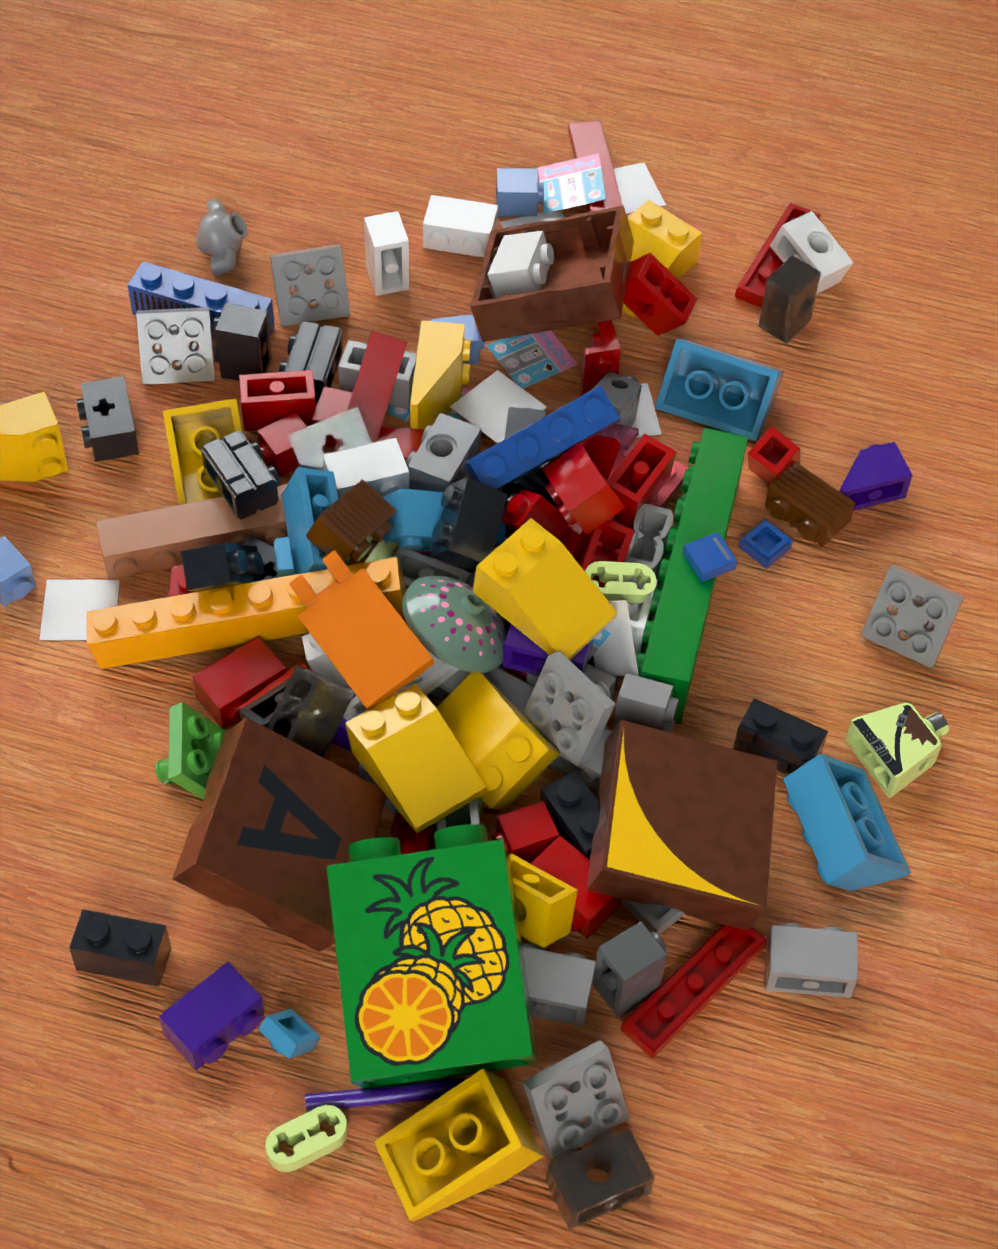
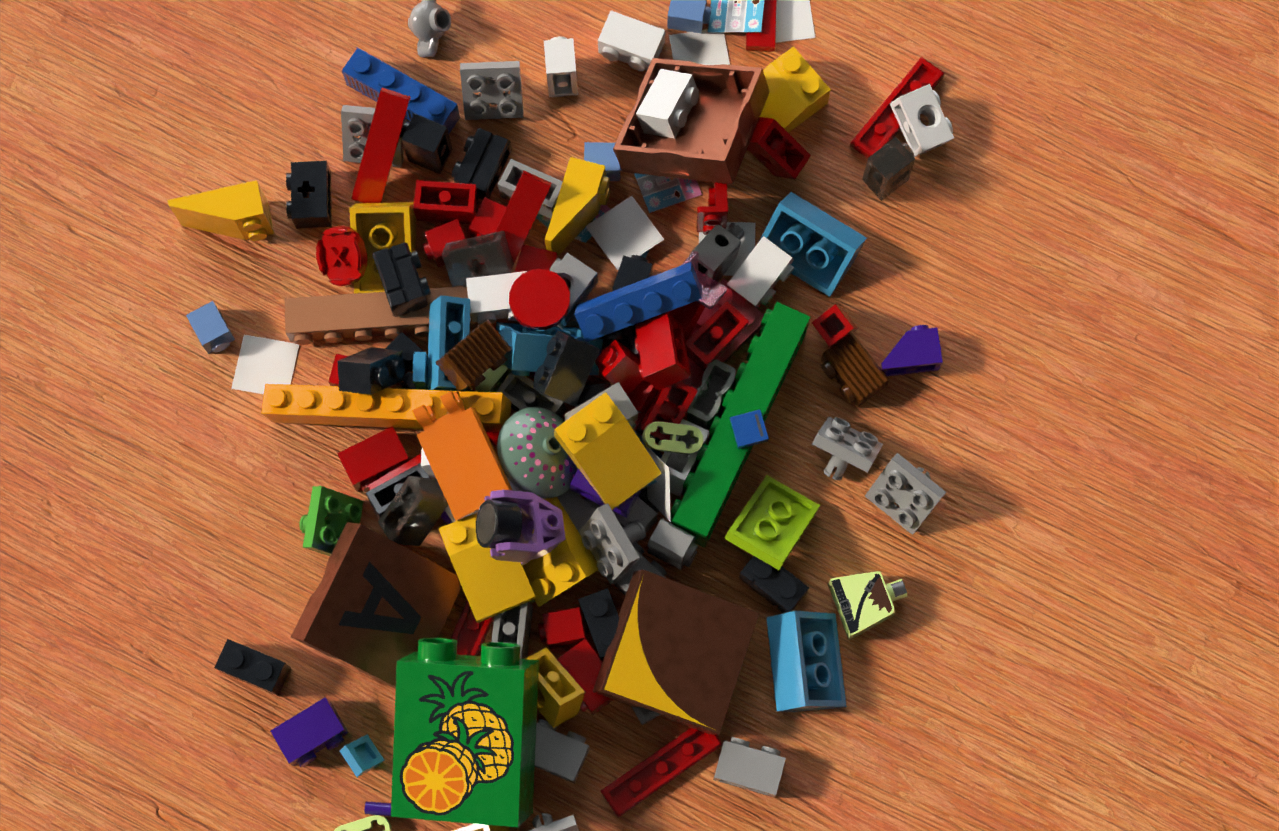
camera: 15 degrees right, 20 degrees up
(159, 470) = (342, 255): none -> red tile
(190, 342) = (380, 146): none -> red tile
(419, 459) = (539, 299): none -> red tile
(453, 692) = (510, 519): none -> medium lavender piece
(629, 968) = (613, 755): dark grey brick -> none
(674, 414) = (761, 273): none -> white brick
(760, 670) = (772, 522): none -> lime plate
(765, 543) = (811, 397): blue tile -> none
(825, 580) = (846, 446): none -> light grey plate

